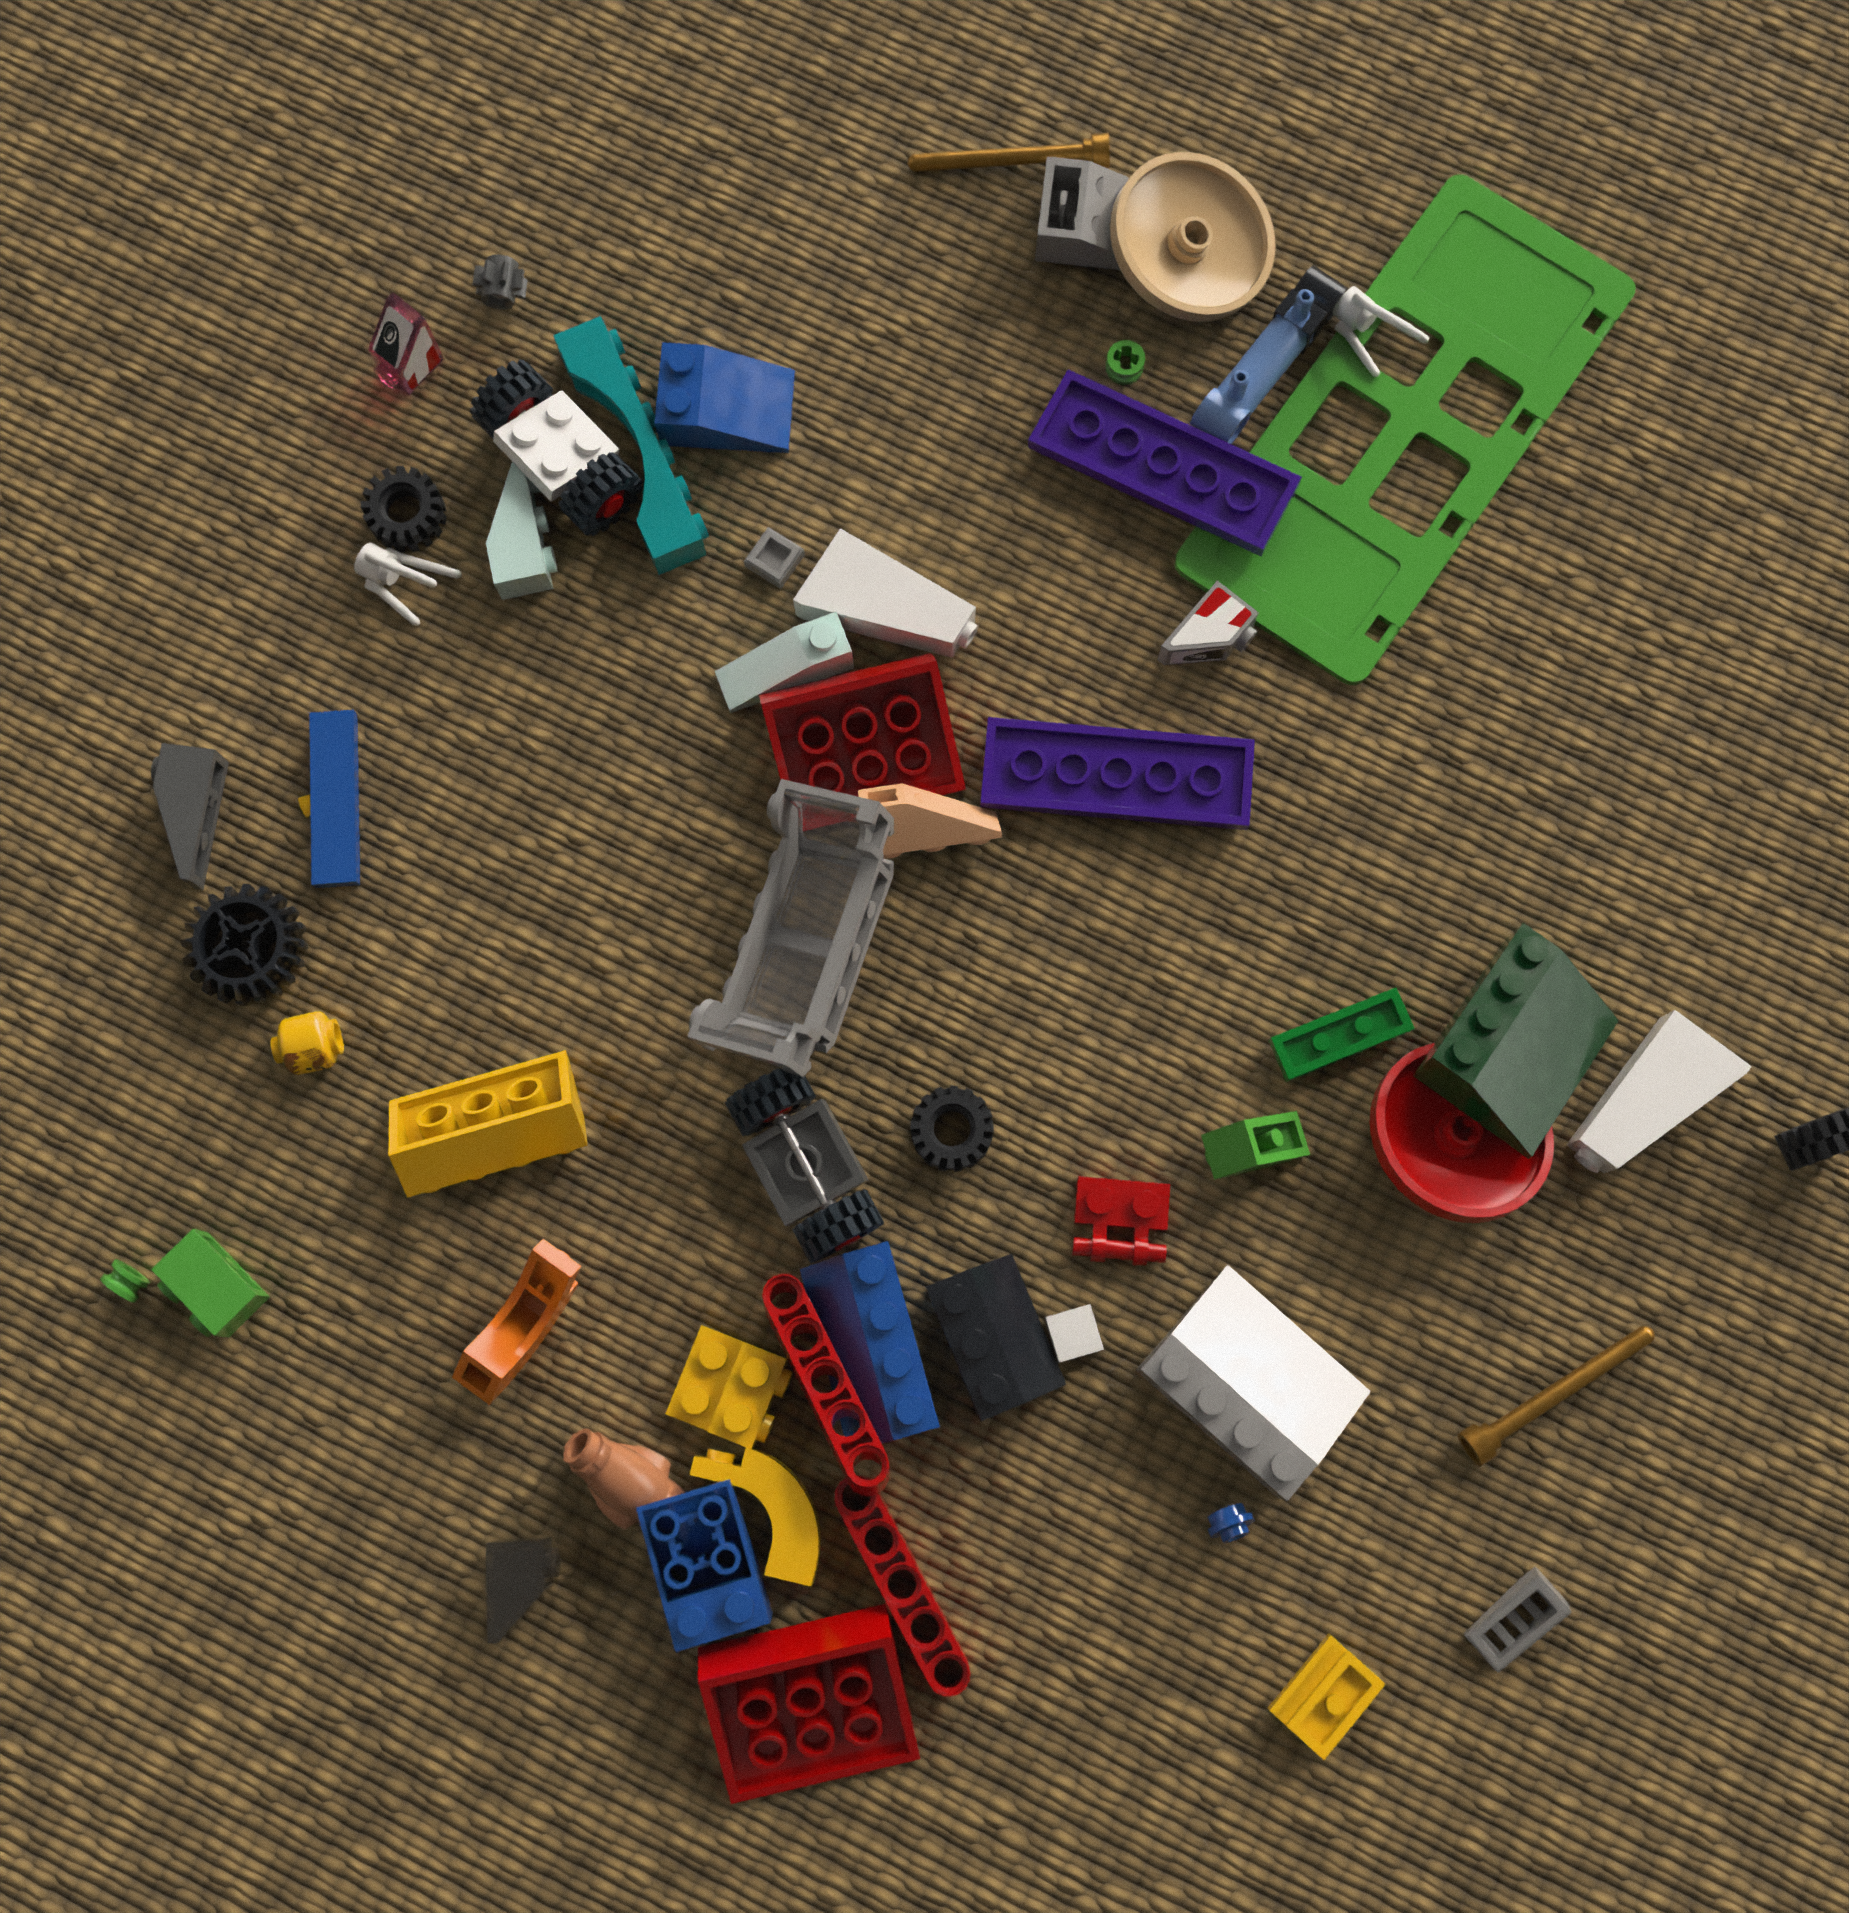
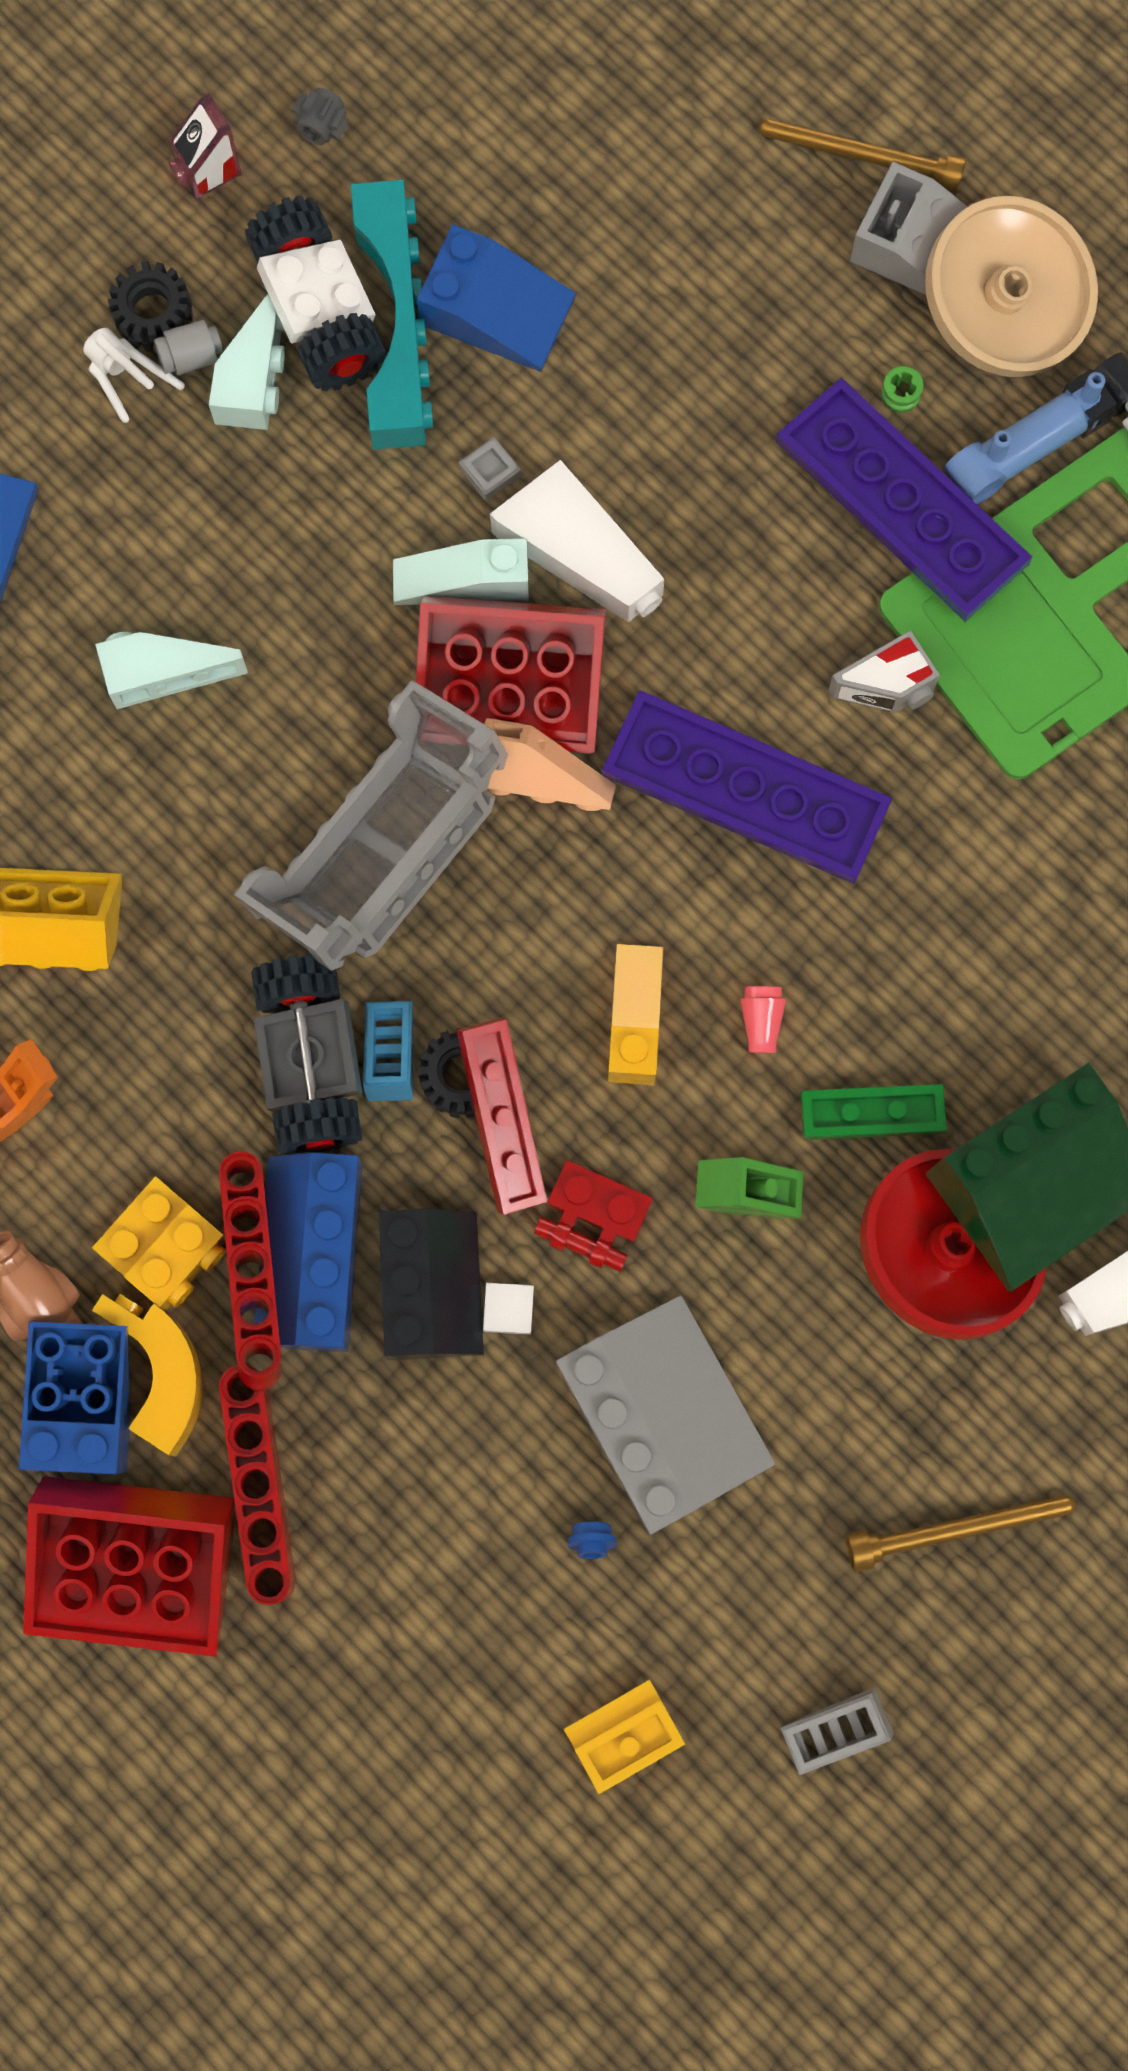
camera: 20 degrees right, 0 degrees up
(453, 536) = (188, 347): none -> light grey brick
(531, 843) = (154, 666): none -> light aqua slope
(892, 1164) = (388, 1080): none -> dark azure slope
(1007, 1156) = (502, 1115): none -> plate
(1093, 1019) = (635, 1014): none -> yellow slope
(1209, 981) = (762, 1017): none -> coral cone

